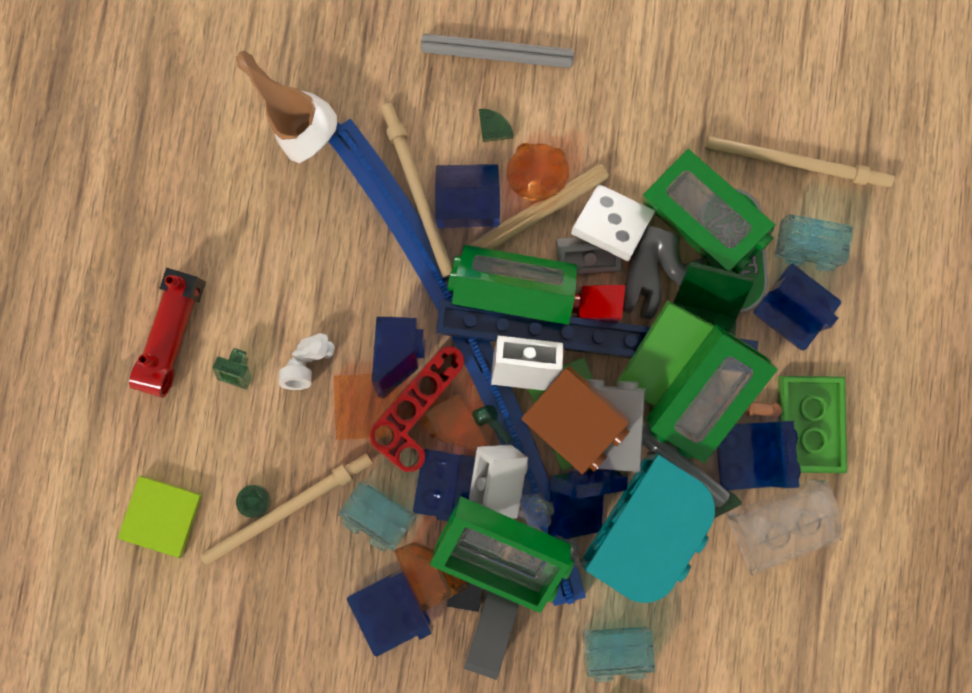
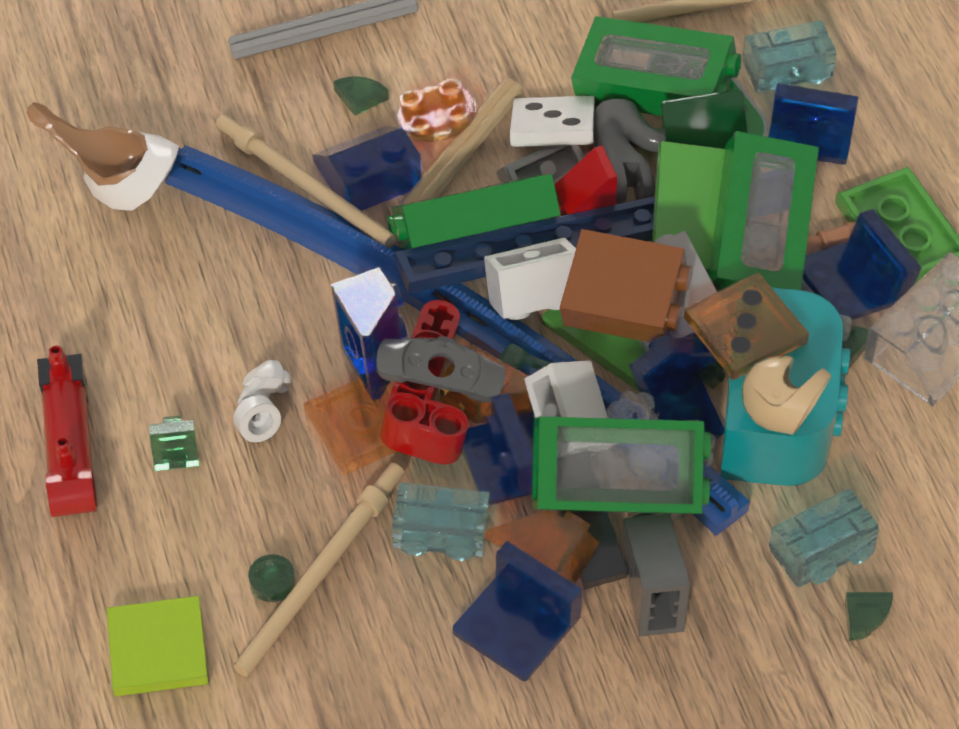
camera: 25 degrees left, 30 degrees down
(403, 399) = (409, 358): none -> dark grey piece
(627, 575) = (774, 400): none -> tan helmet
(642, 497) = (745, 325): none -> clear orange tile

